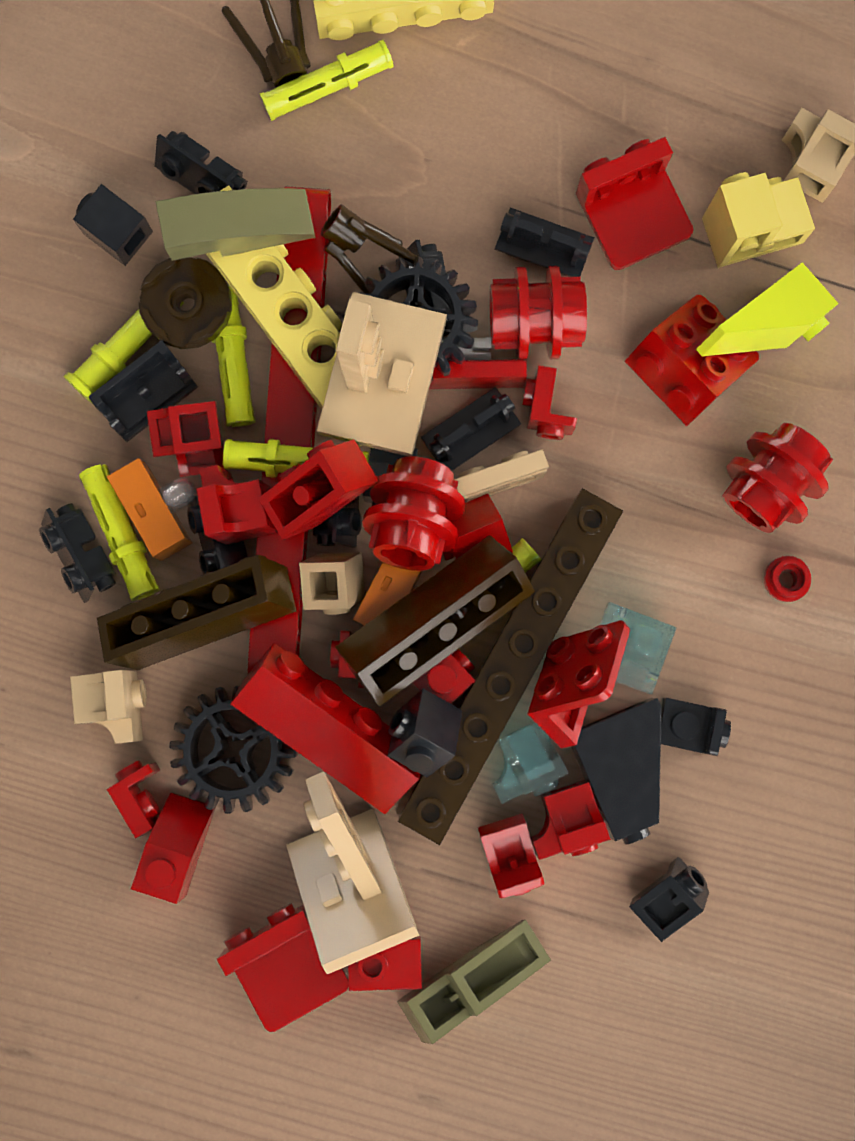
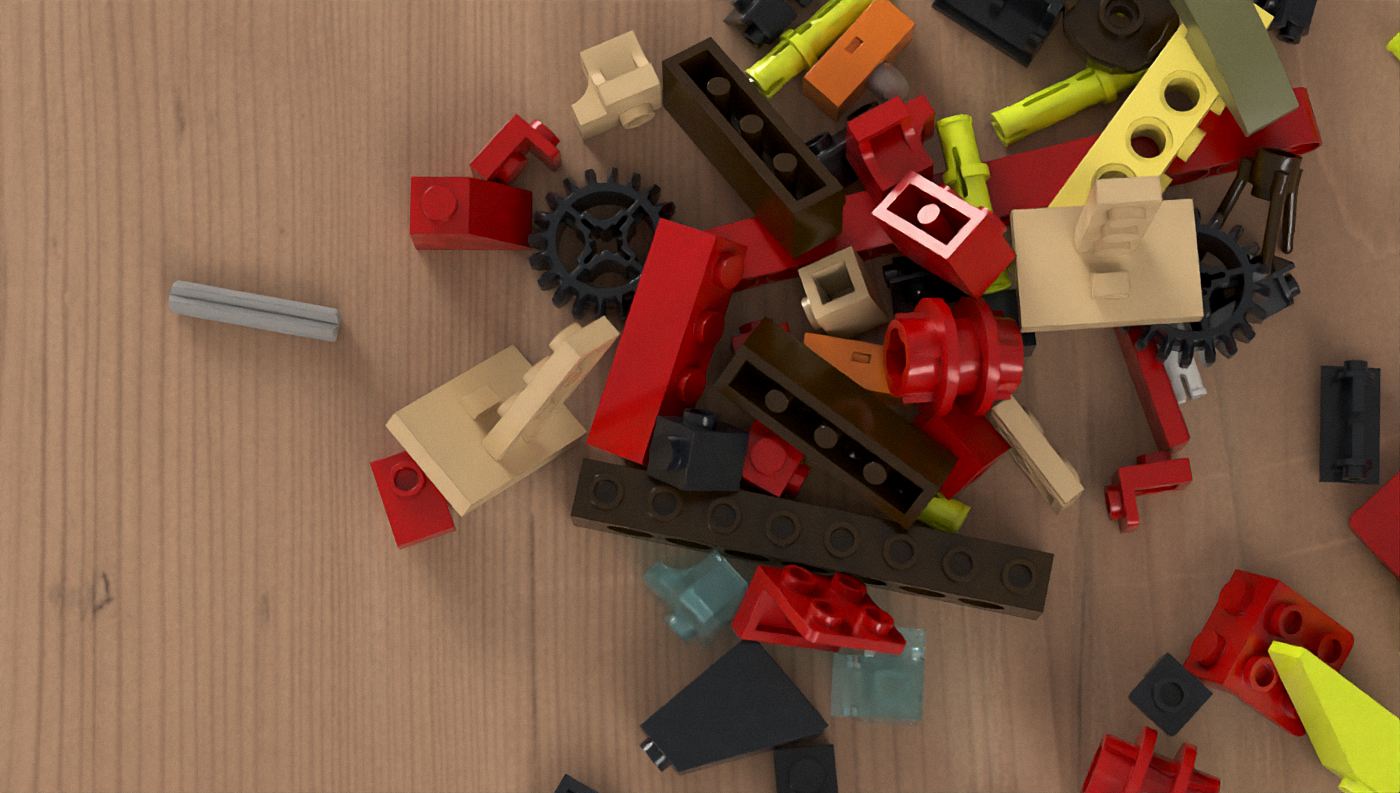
camera: 75 degrees right, 5 degrees down
(189, 433) = (963, 72): red brick -> none
(194, 1040) = (255, 310): none -> light grey axle
(281, 968) = (367, 381): red bracket -> none
(472, 429) = (1083, 407): black hinge -> none
(474, 982) = (421, 615): olive slope -> none
(511, 856) = (582, 611): red bracket -> none
(538, 312) = (1259, 405): red piece -> none
(570, 823) = (645, 669): red brick -> none
(709, 439) = (1169, 695): none -> black bracket

